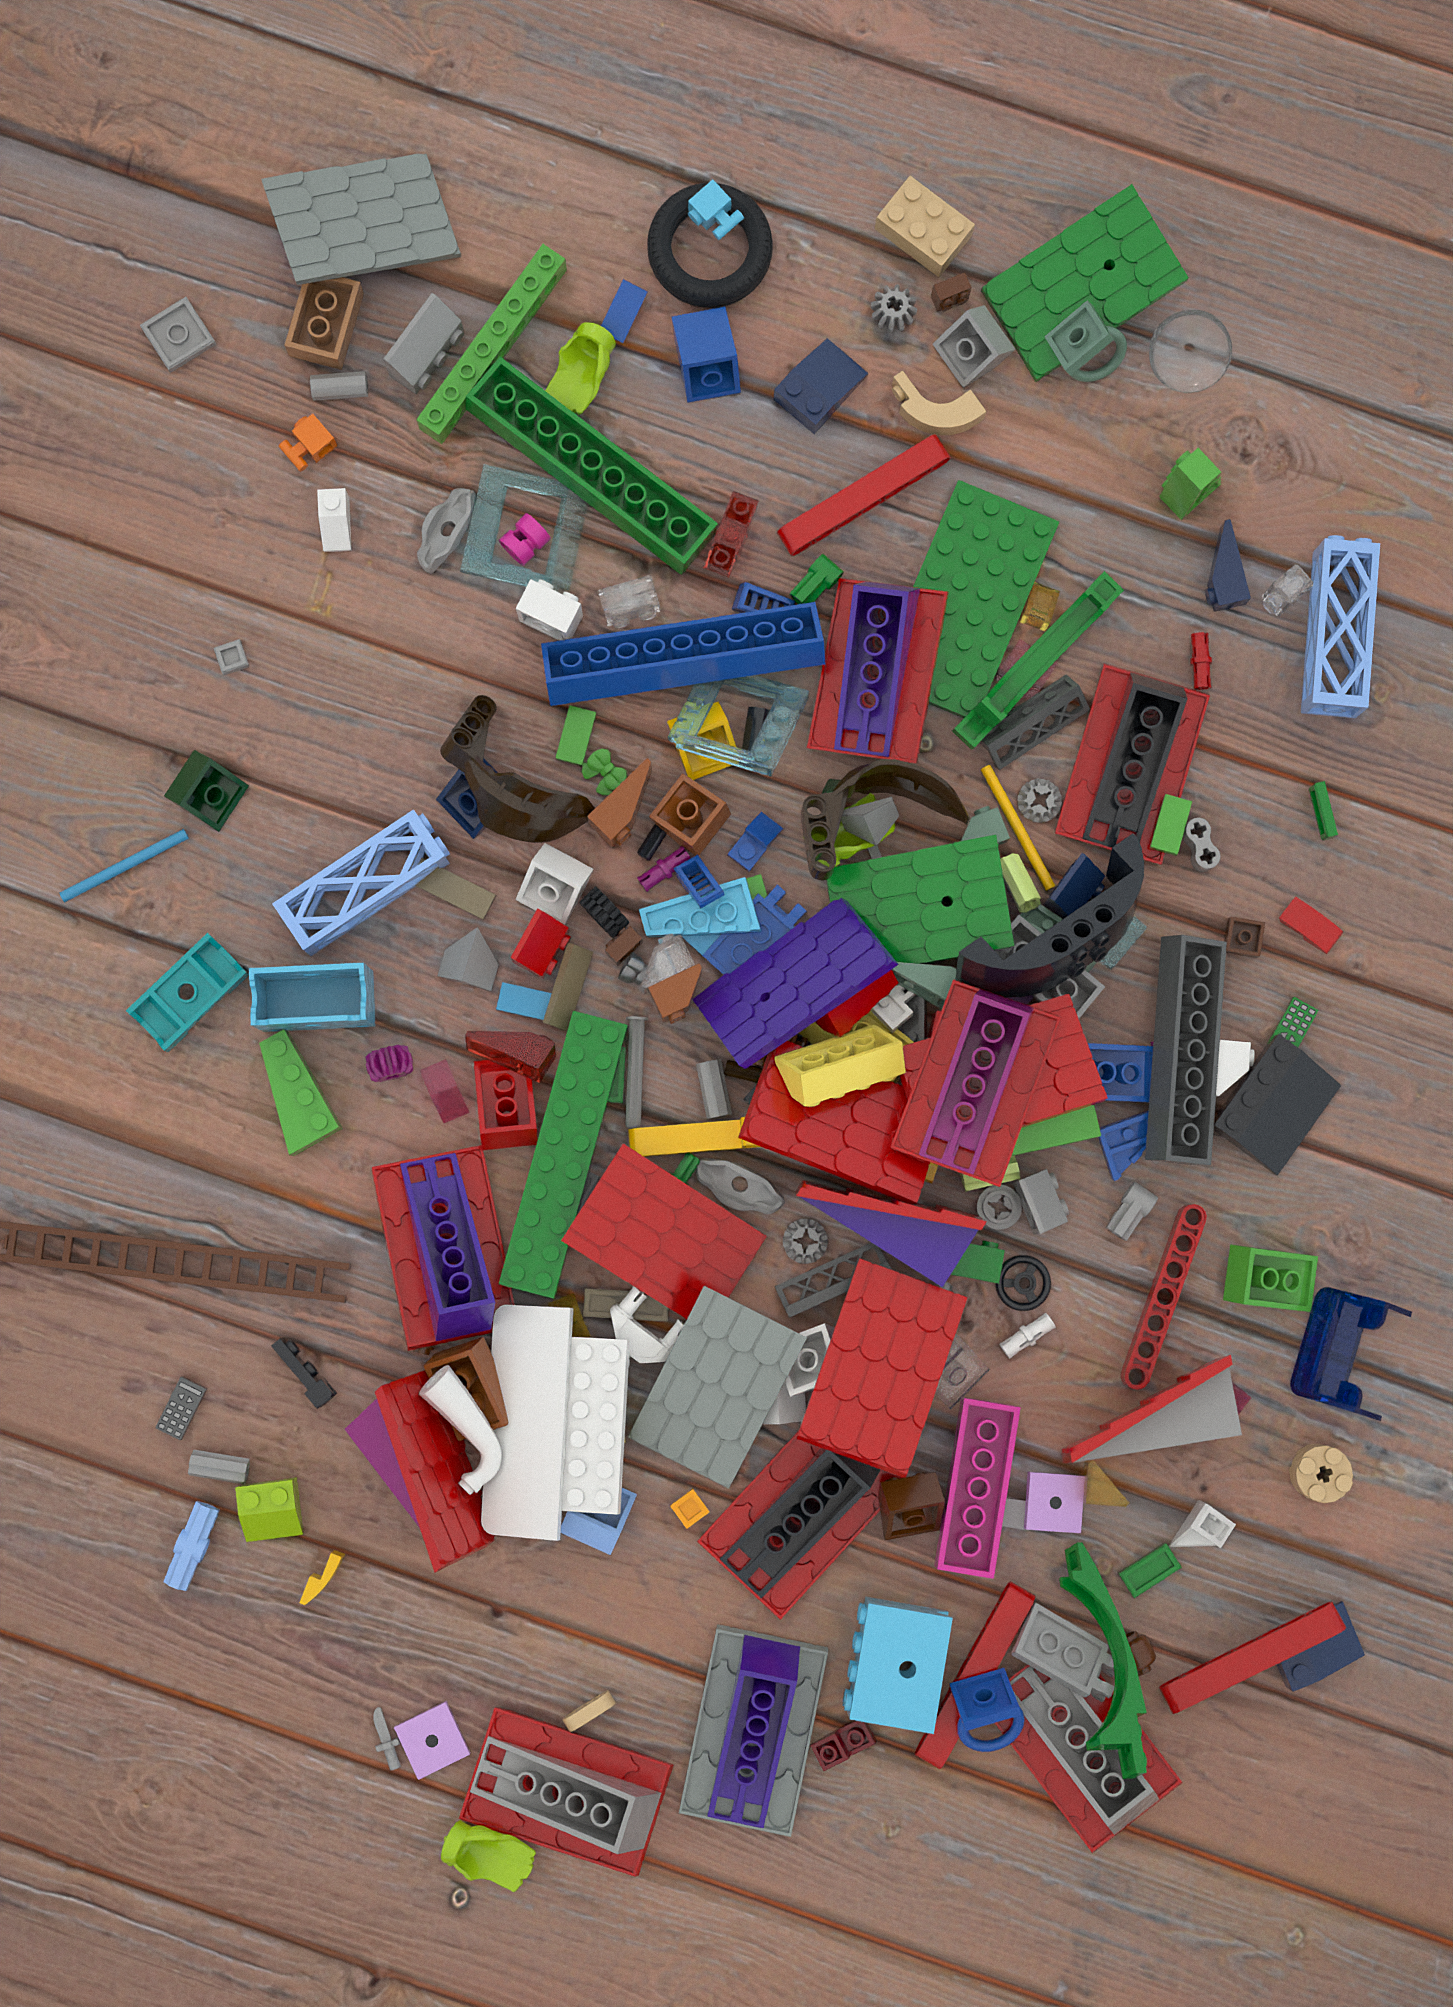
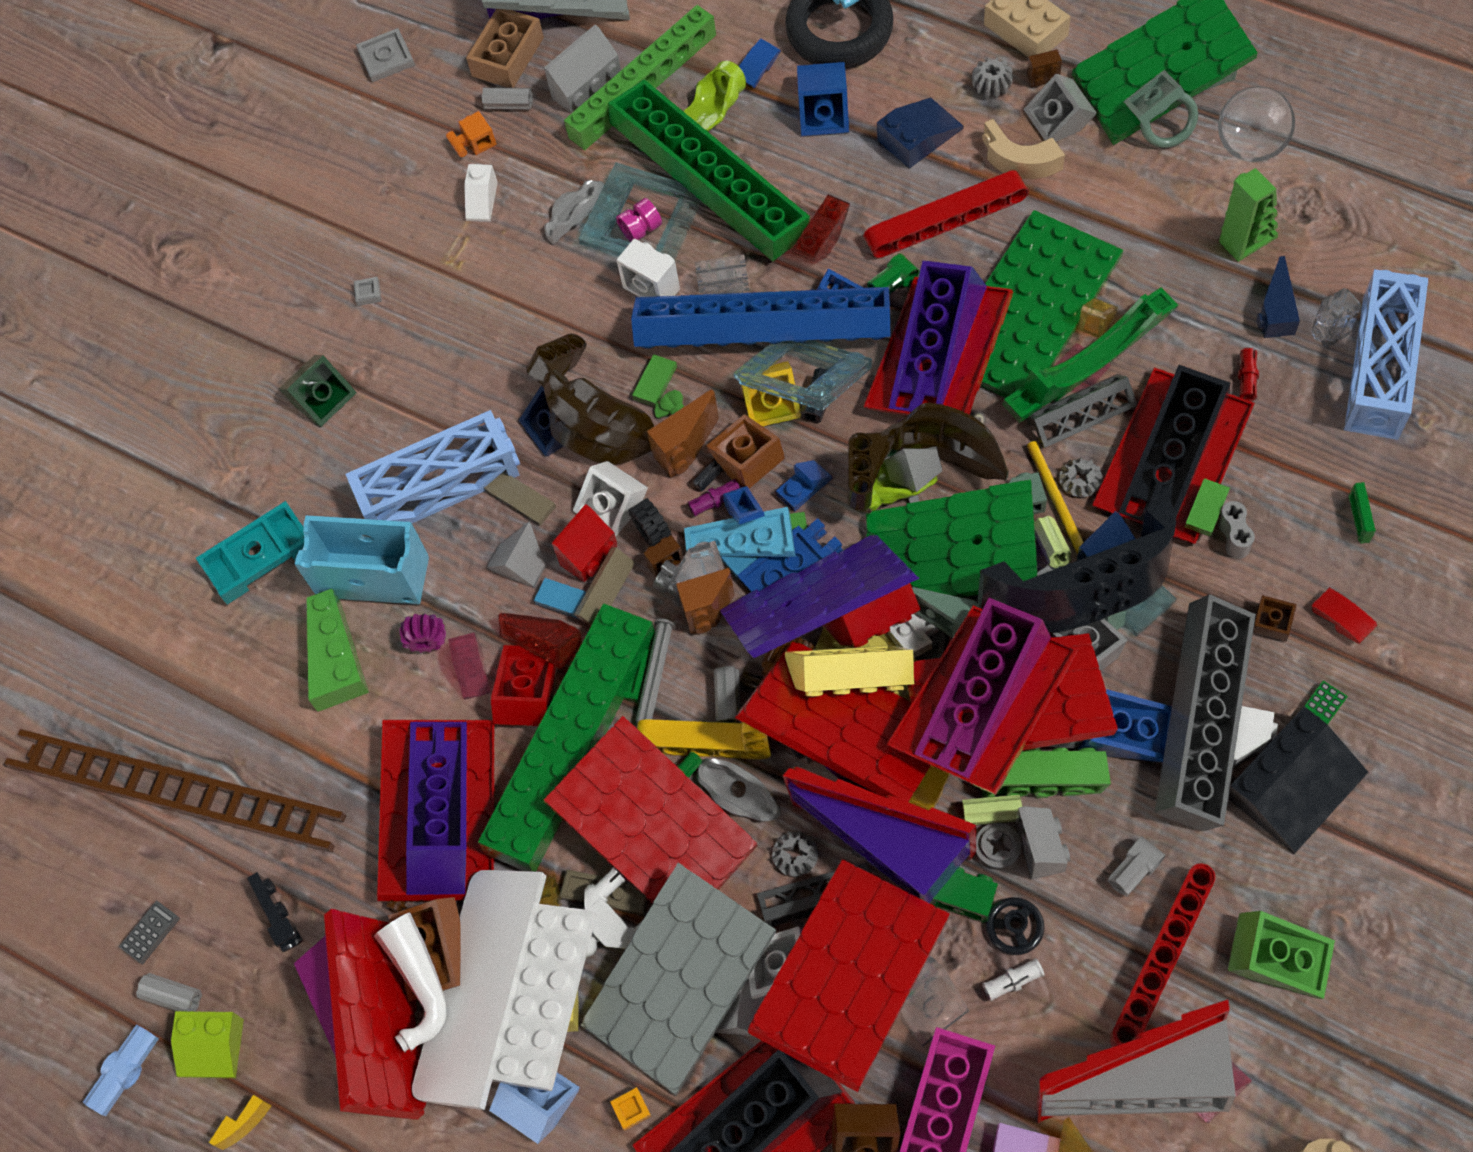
camera: 25 degrees right, 20 degrees down
(124, 865) = (230, 445): dark azure piece -> none
(1123, 1142) = (1133, 798): blue wing -> none
(1331, 1347) = (1347, 1033): clear blue windscreen -> none

